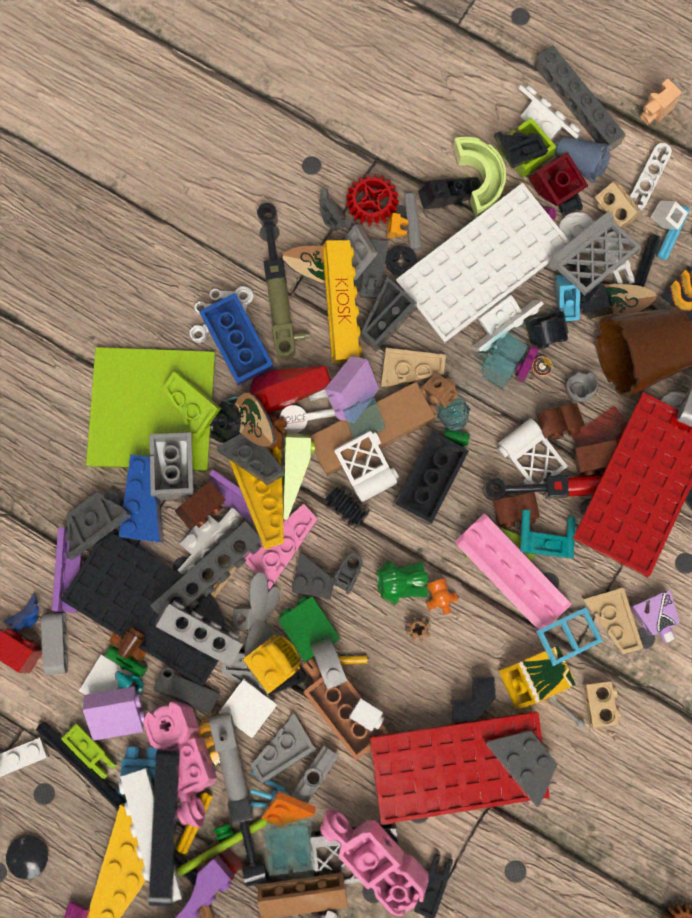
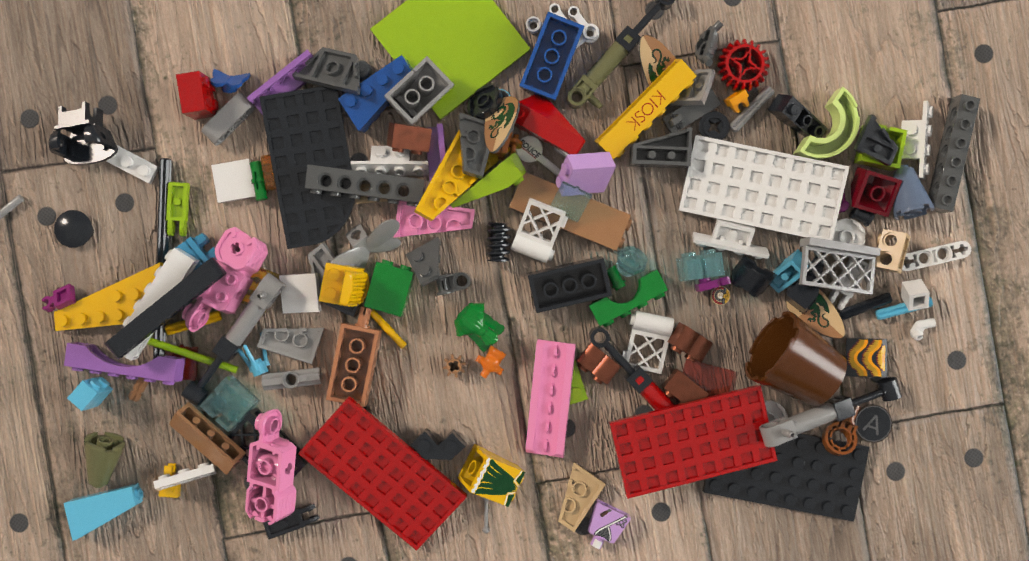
camera: 40 degrees right, 10 degrees up
(113, 713) = (215, 203): lavender brick -> none
(125, 681) = (243, 193): teal piece -> none
(132, 640) = (274, 172): reddish brown cone -> none
(186, 691) = (274, 241): dark grey piece -> none
(195, 407) = (477, 69): lime wing -> none
(223, 831) = (204, 347): green bush -> none
(225, 653) = (320, 245): light grey brick -> none
(286, 809) = (252, 378): orange wing -> none
(328, 663) = (375, 323): light grey brick -> none
(367, 715) = (361, 382): white brick -> none
(410, 366) = (639, 200): tan wing -> none
(440, 390) = (640, 237): medium nougat brick -> none
(487, 416) = (649, 287): none -> green arch
(526, 762) = (425, 516): dark grey wing -> none
(547, 544) = (591, 406): teal plate -> none
(577, 650) = (544, 462): medium azure window -> none
(582, 386) = (729, 337): light grey hair -> none
(595, 705) = (506, 531): tan brick -> none
(662, 103) = (1000, 217): light nougat hips -> none

